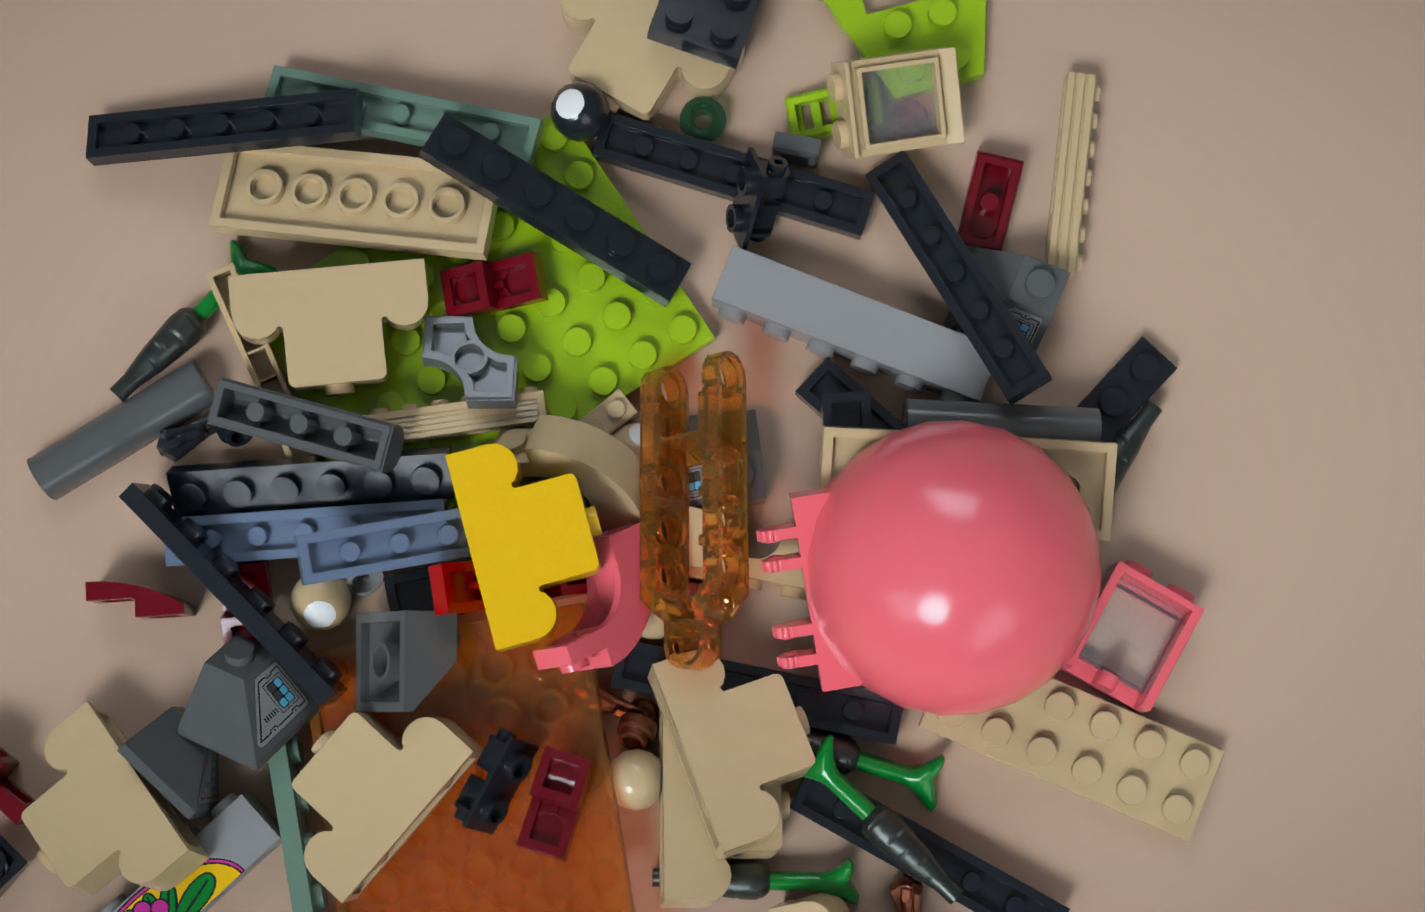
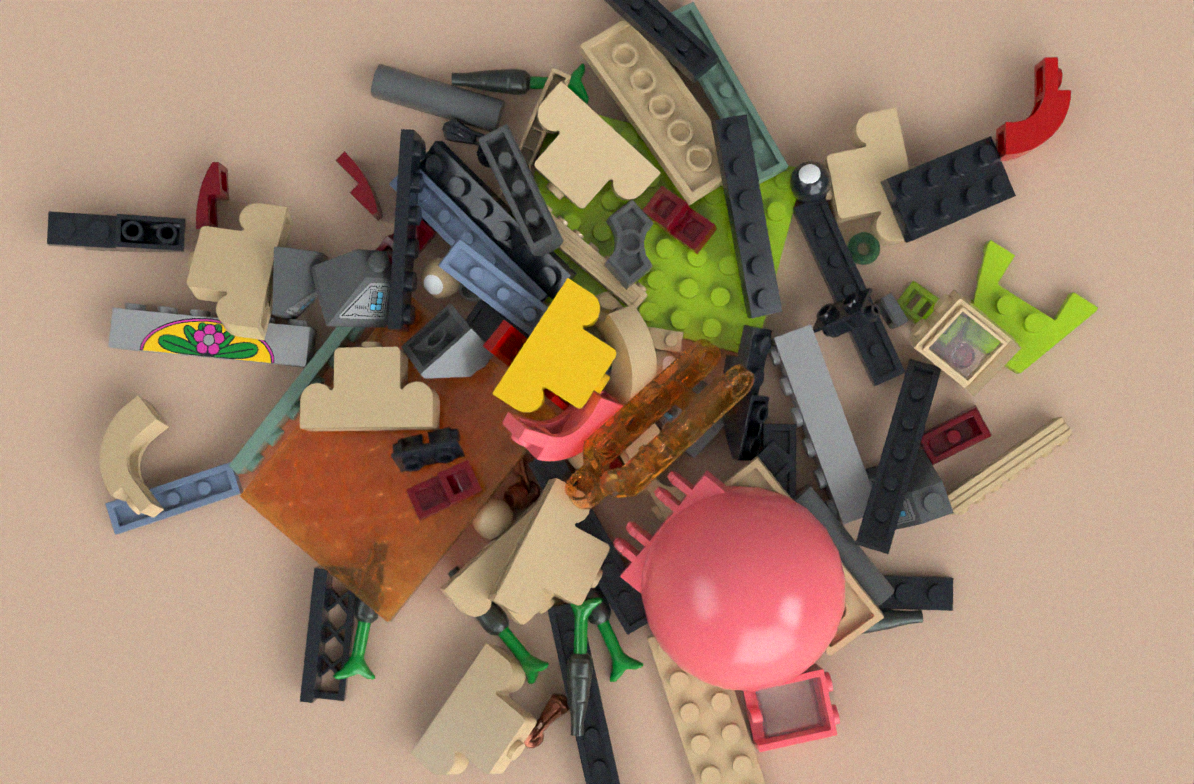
camera: 50 degrees right, 5 degrees up
(772, 403) = (746, 419): none -> black slope

